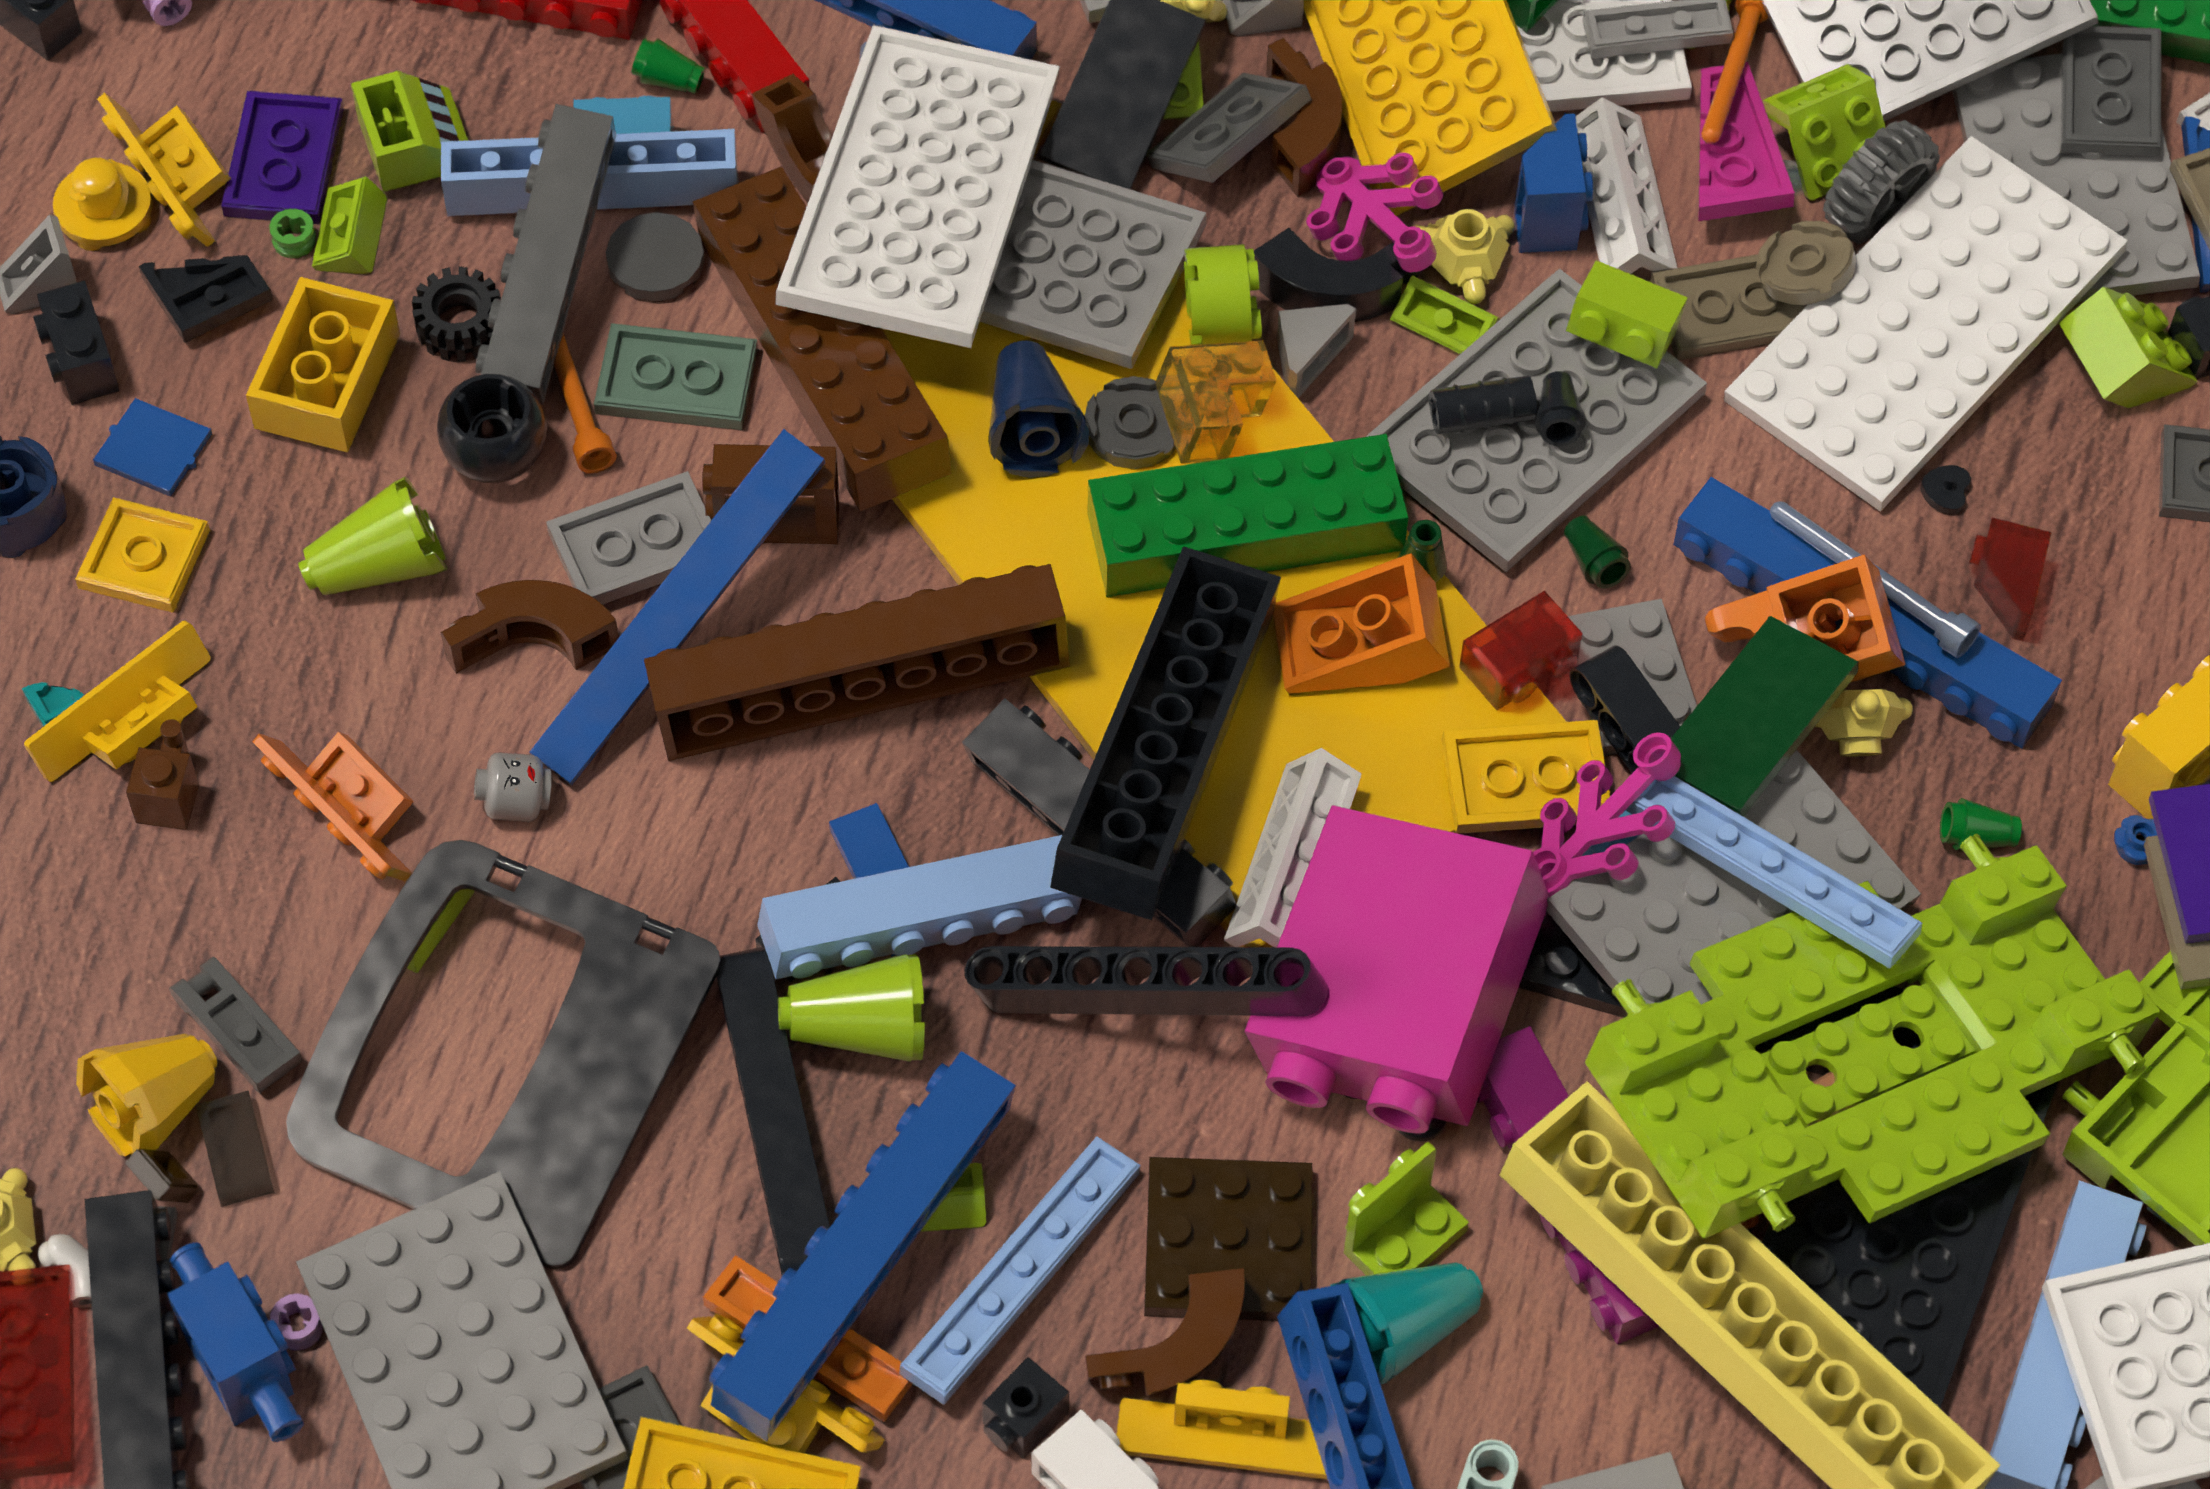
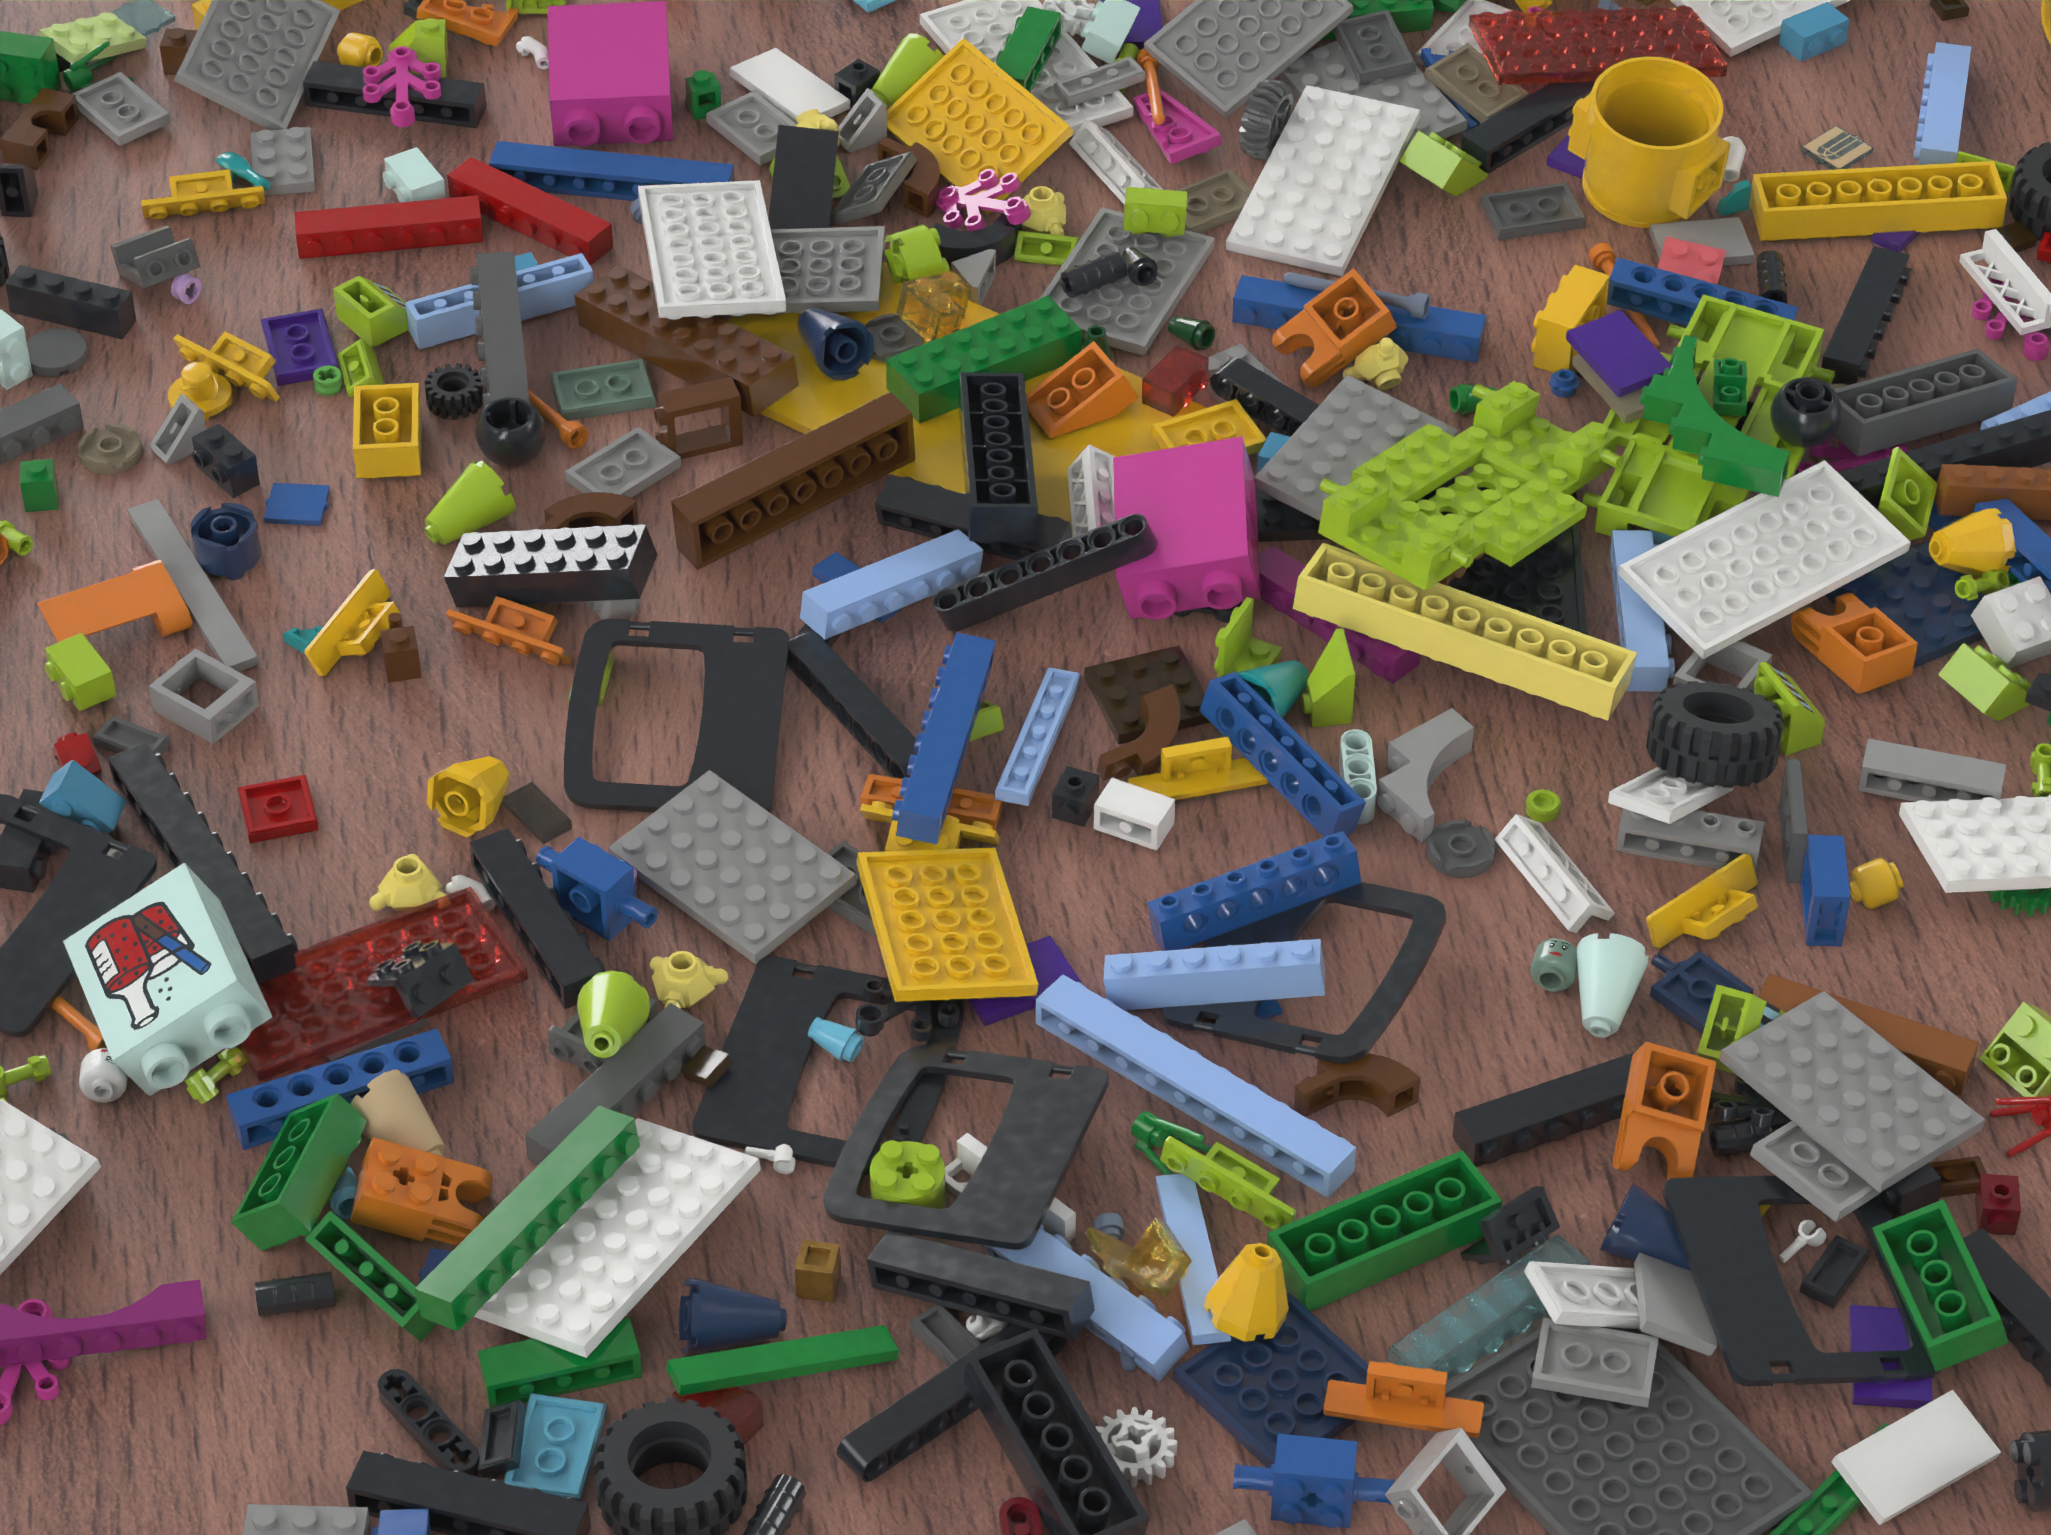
camera: 20 degrees left, 15 degrees down
(142, 554) = (320, 555): yellow tile -> none
(163, 1175) = (493, 825): dark brown tile -> none
(206, 292) = (290, 420): black wing -> none
(237, 1025) = (517, 755): dark grey plate -> none
(433, 710) = (551, 565): none -> black brick
(655, 256) = (558, 336): dark grey tile -> none
(666, 67) = (518, 243): green cone -> none
(678, 605) = (682, 458): blue tile -> none
(794, 130) = (613, 247): reddish brown arch -> none
(860, 1009) = (886, 637): lime cone -> none
(1500, 1336) = (1331, 685): none -> lime slope
(1553, 191) = (1082, 169): blue slope -> none
(1597, 823) = (1286, 392): dark pink plant -> none
(1759, 713) = (1328, 364): dark green tile -> none
(1783, 871) = (1373, 424): light blue tile -> none
(1806, 263) = (1243, 167): dark tan tile -> none
(1827, 123) = (1223, 100): lime bracket -> none
(1945, 488) = (1373, 256): black piece -> none
(2010, 571) = (1430, 275): clear red slope -> none

